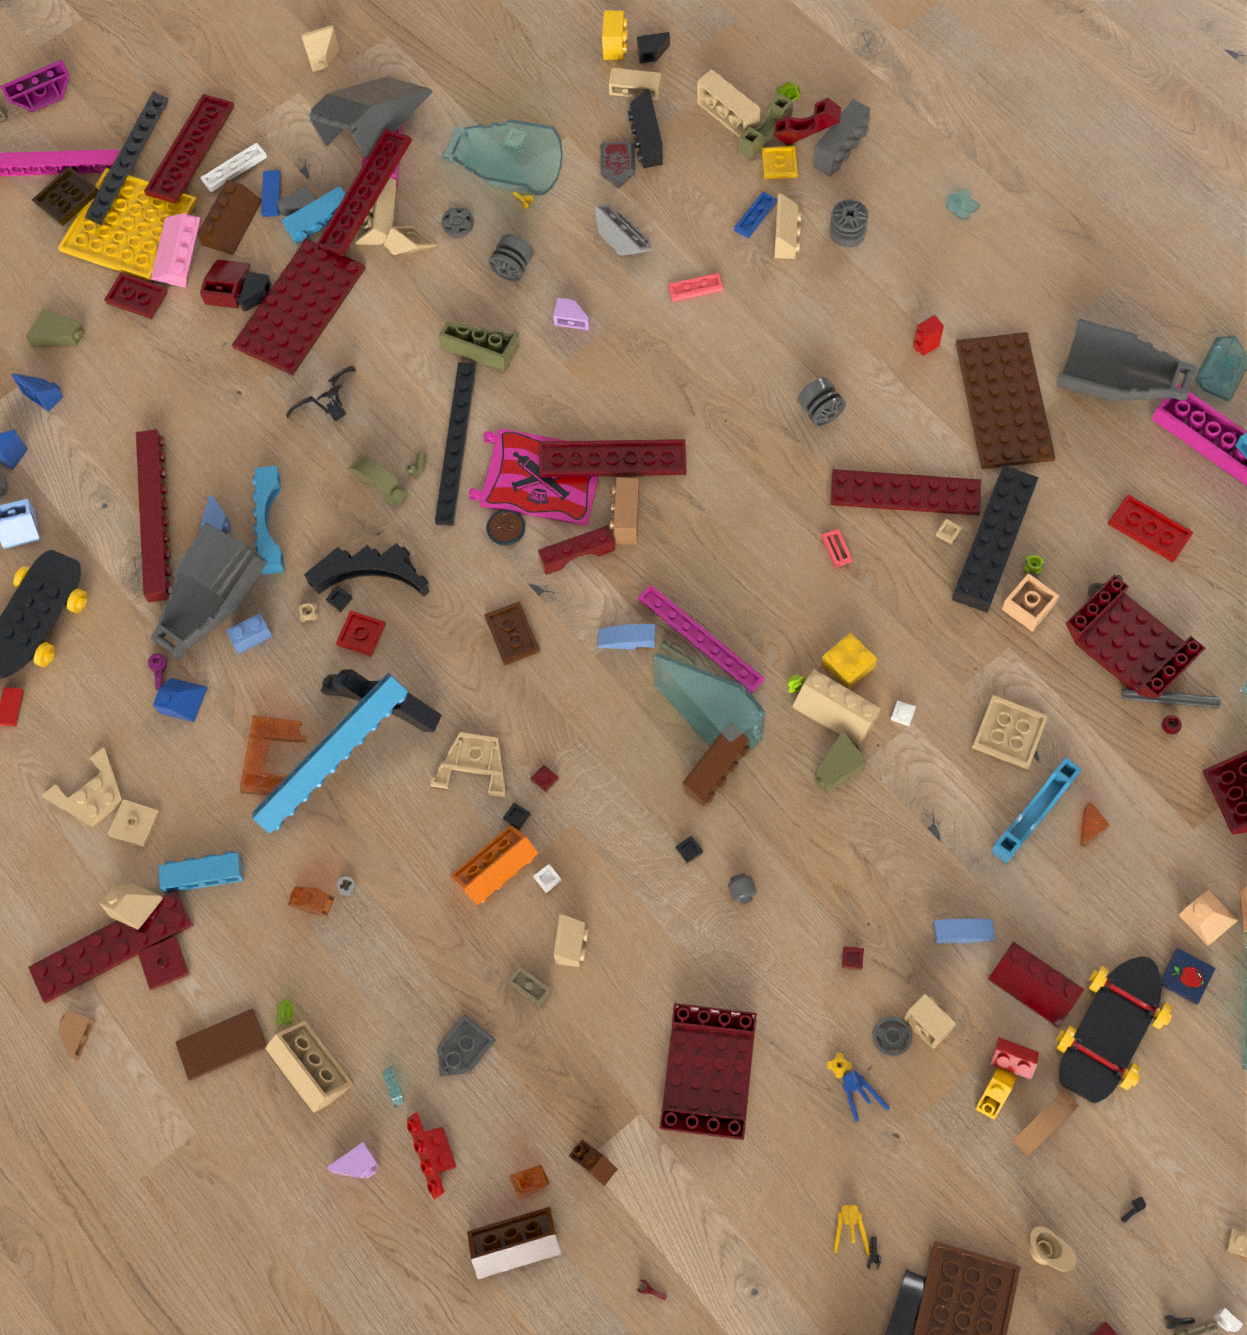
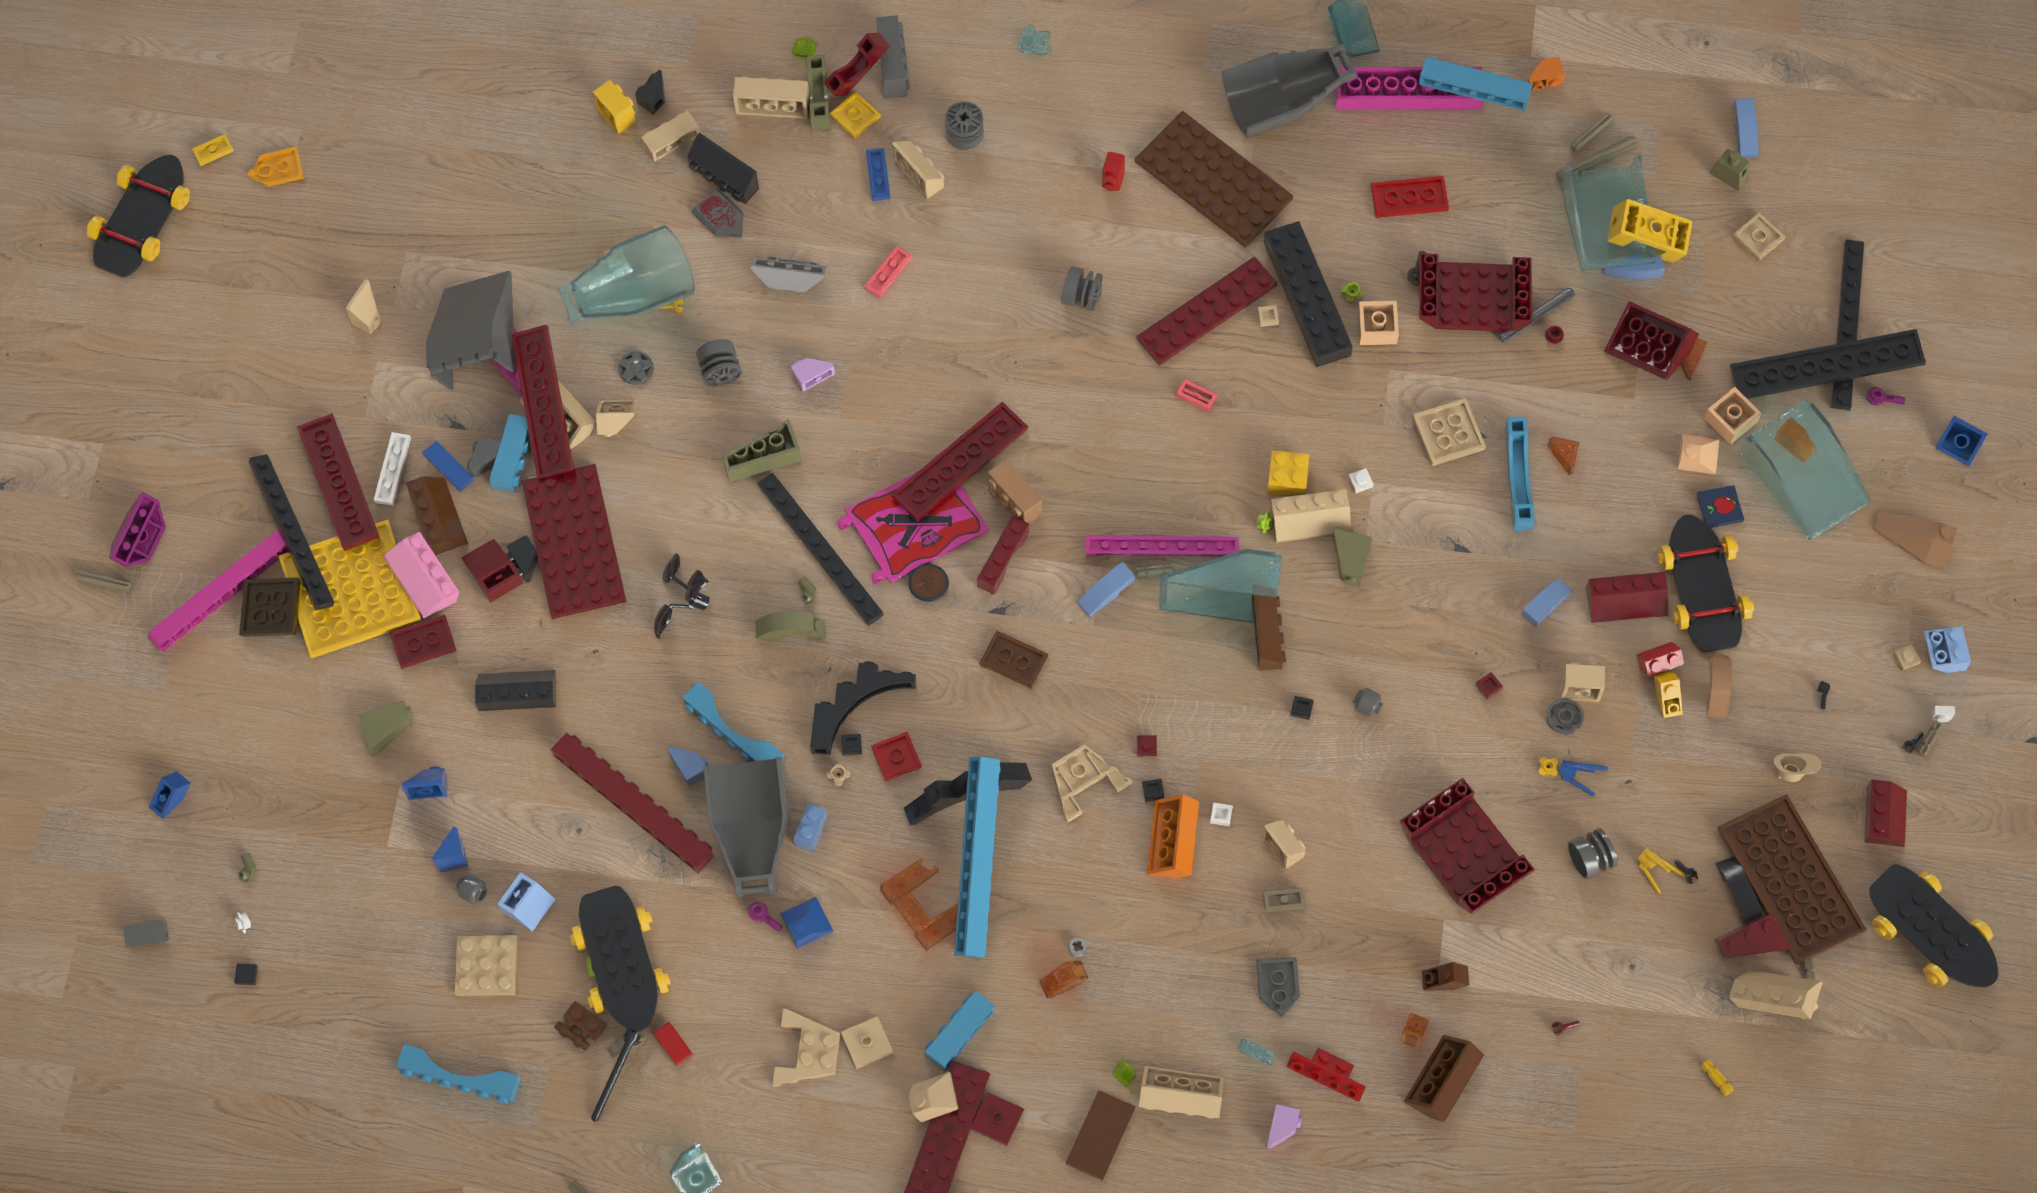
camera: 45 degrees left, 0 degrees up
(159, 375) = (515, 690): none -> black slope
(805, 1169) = (1592, 853): none -> dark grey wheel

